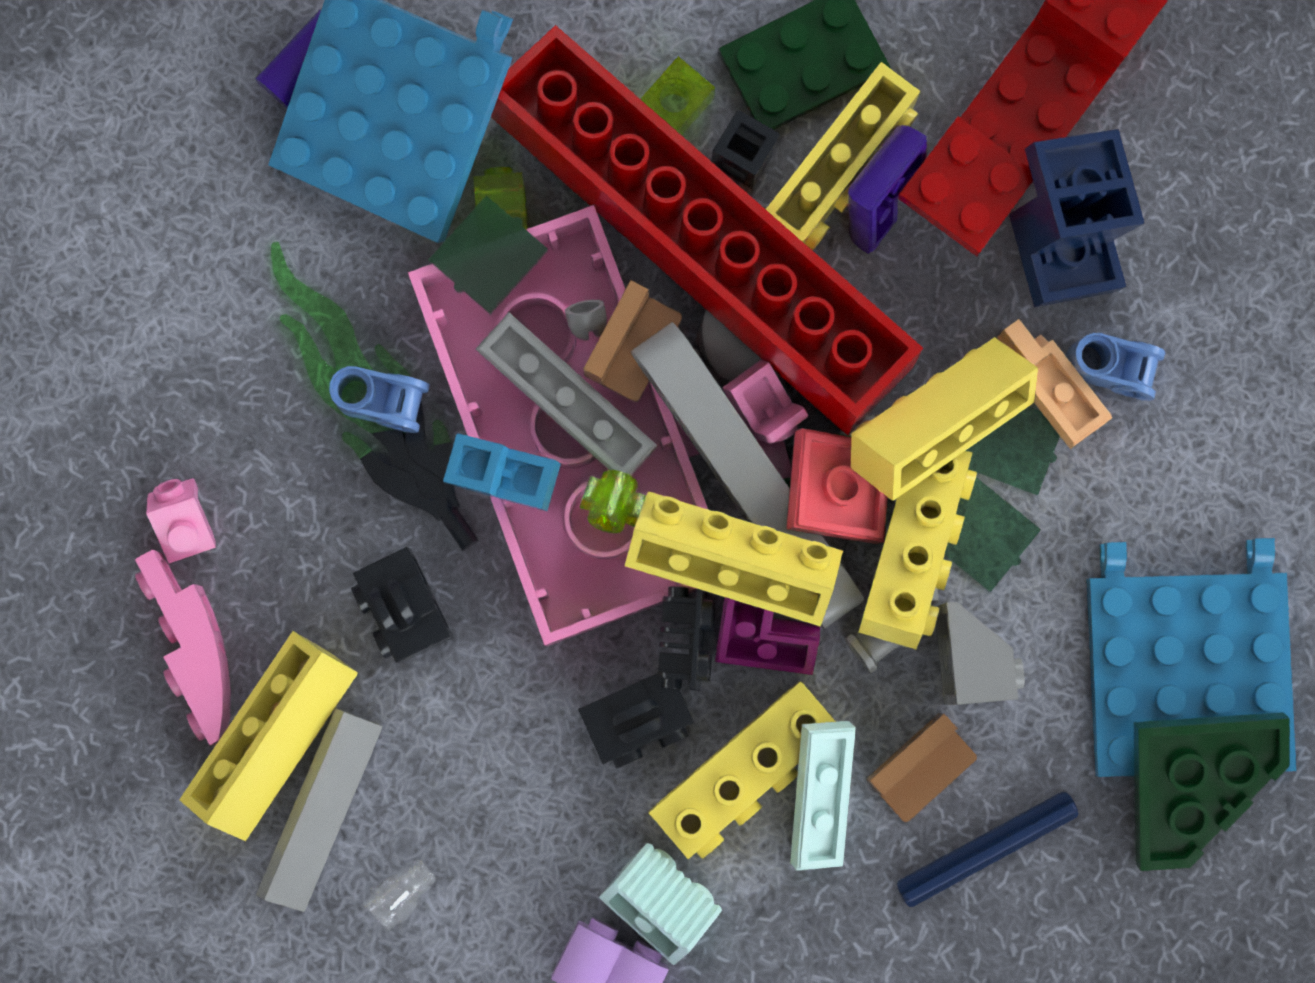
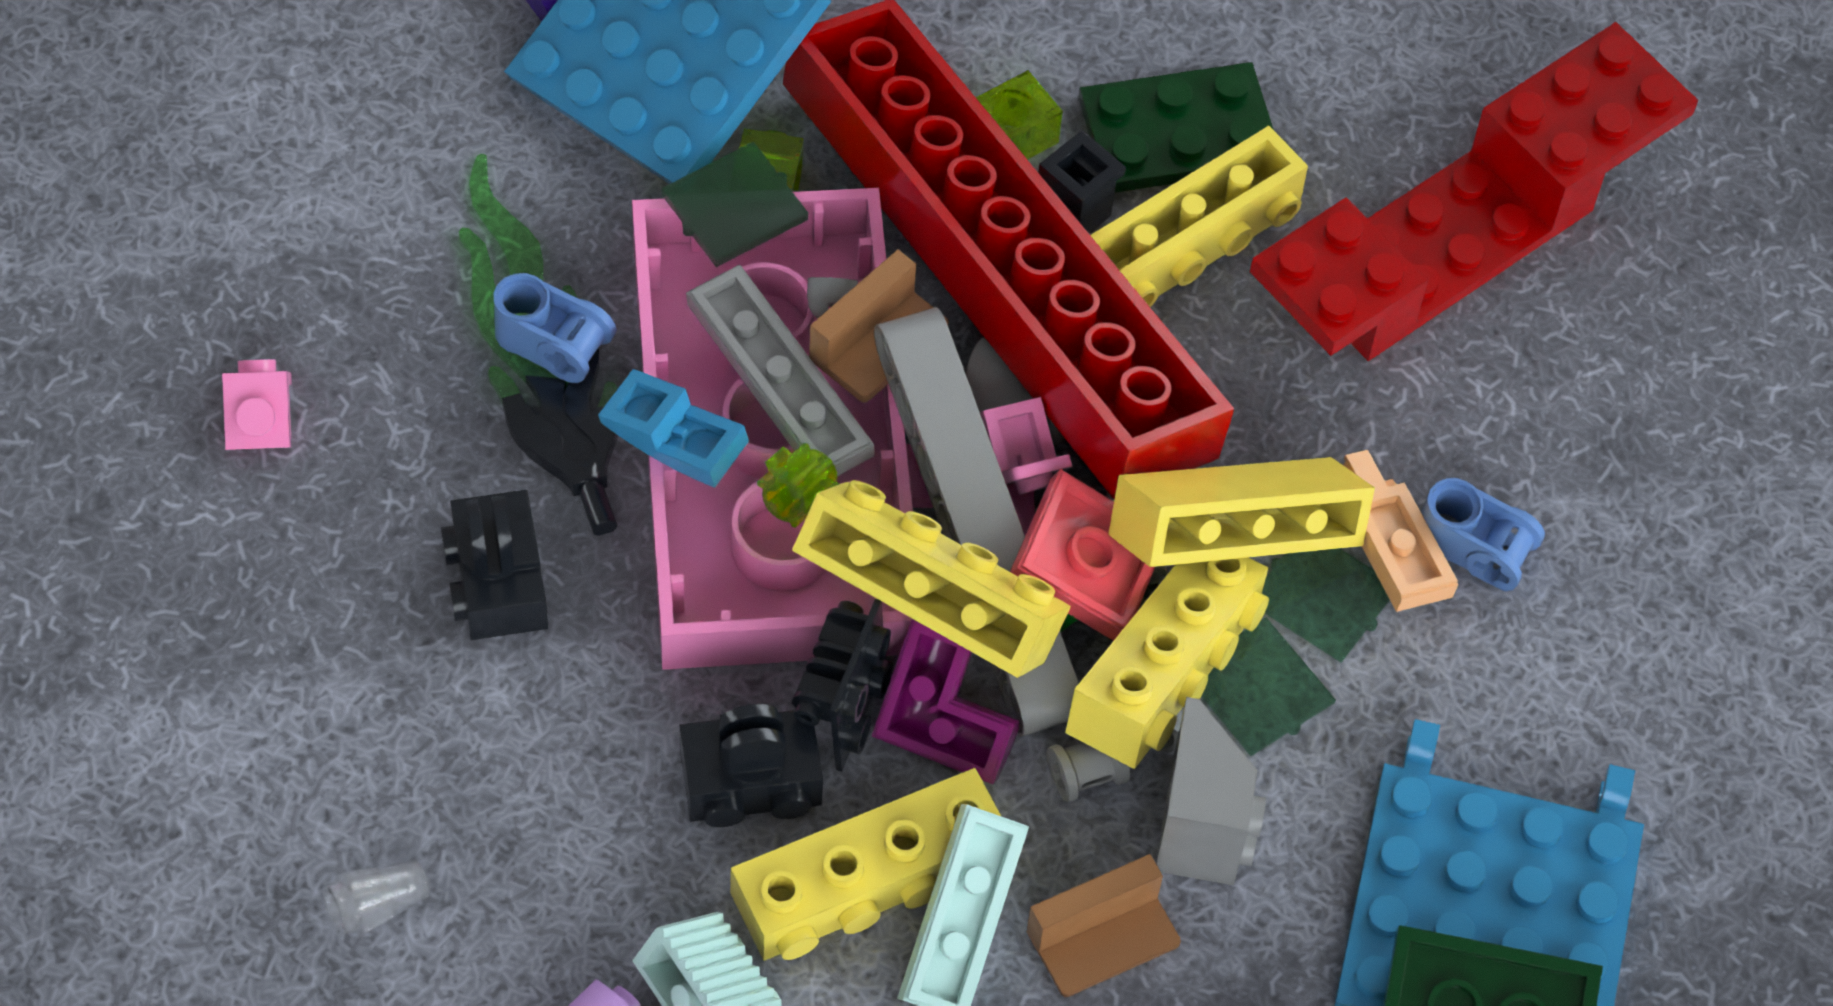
camera: 15 degrees right, 25 degrees down
(200, 664) = (220, 548): bright pink slope -> none
(268, 737) = (277, 658): light yellow brick -> none
(319, 810) = (307, 769): light grey tile -> none
(876, 189) = (1222, 259): dark purple brick -> none
(1078, 213) = (1464, 347): dark blue bracket -> none

